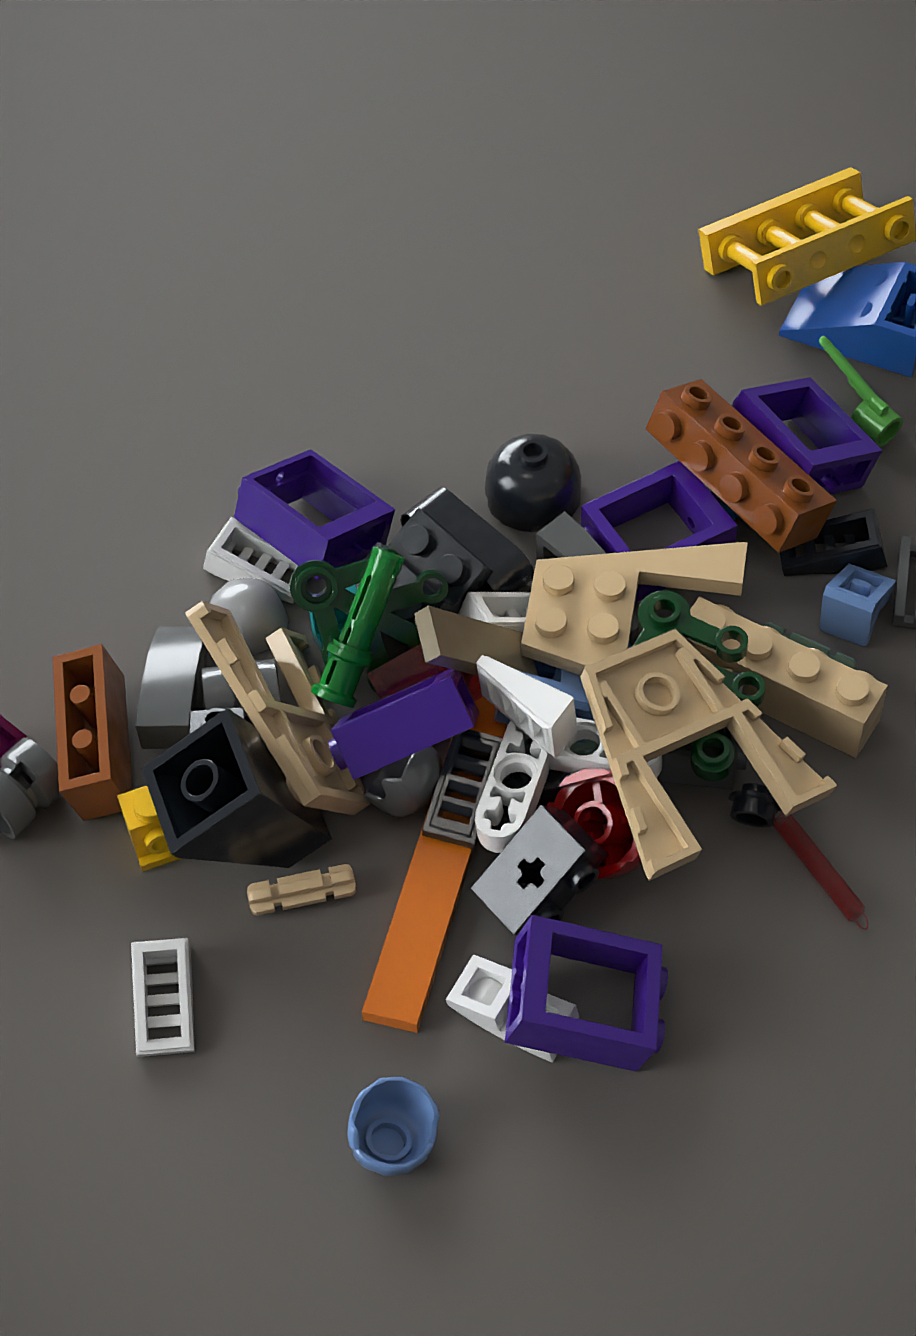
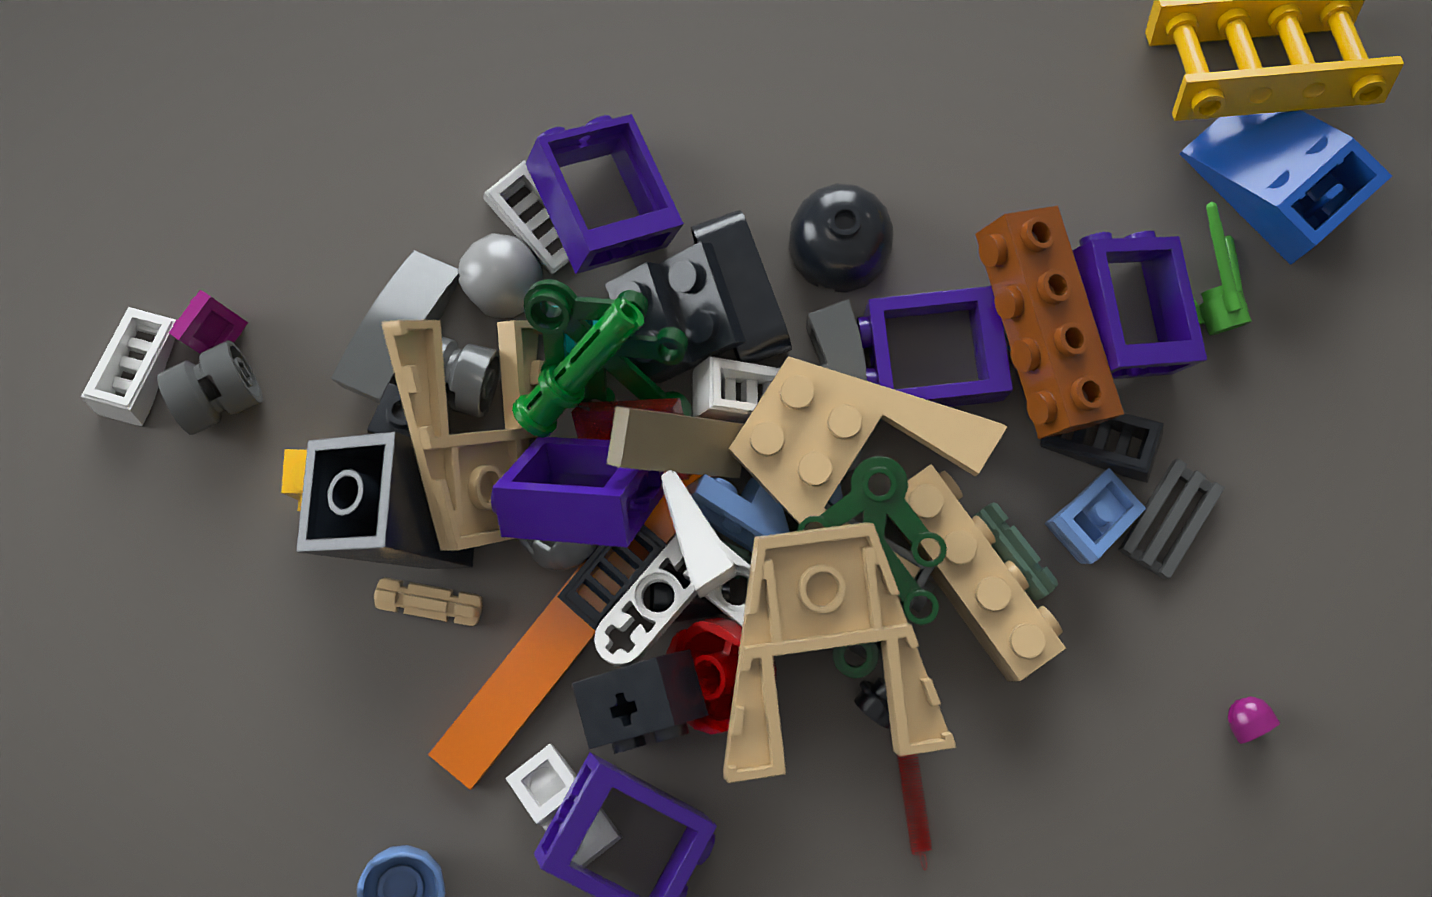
camera: 25 degrees right, 25 degrees up
(91, 731) = (296, 357): dark orange brick -> none
(159, 953) = (251, 629): white slope -> none

